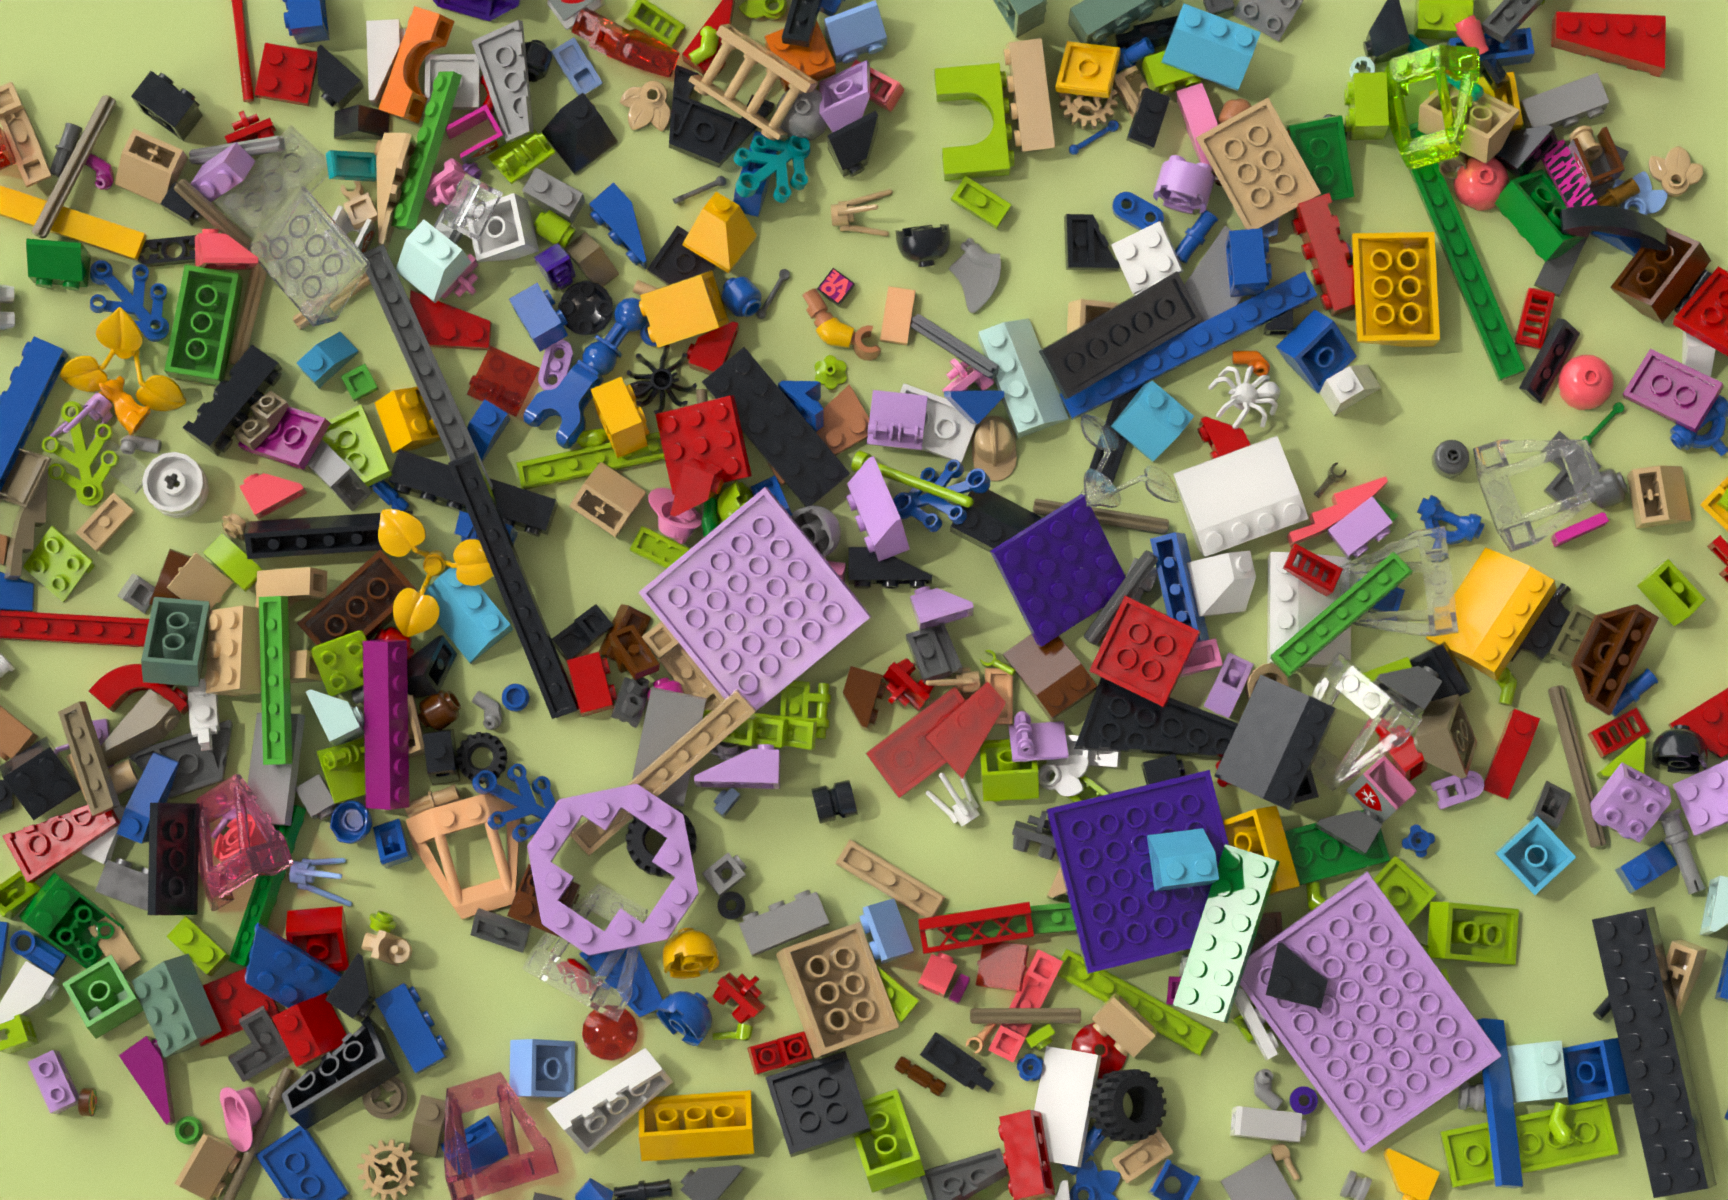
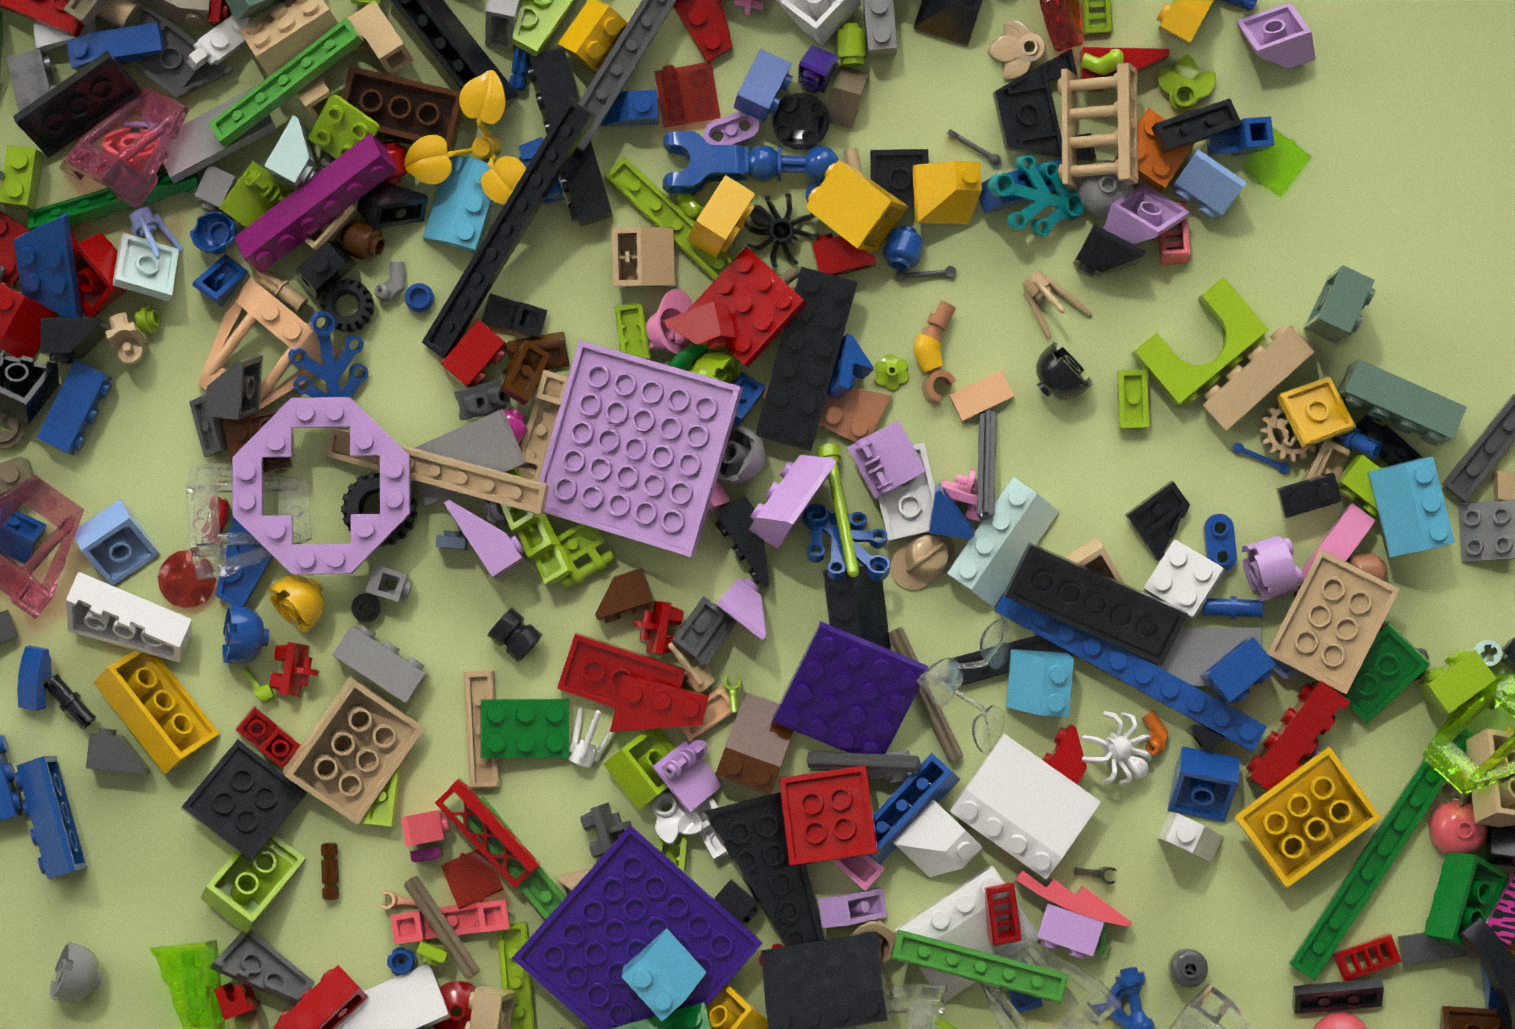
camera: 55 degrees right, 5 degrees up
(341, 897) = (140, 270): none -> light aqua plate
(490, 887) = (235, 391): none -> dark grey slope
(617, 214) = (901, 94): blue slope -> none
(835, 287) = (969, 324): tile -> none
(887, 931) = (432, 757): light blue slope -> none
(913, 845) = (524, 728): none -> green plate
(956, 1063) = (361, 895): black hinge -> none
(977, 274) = (1067, 439): light grey arm -> none

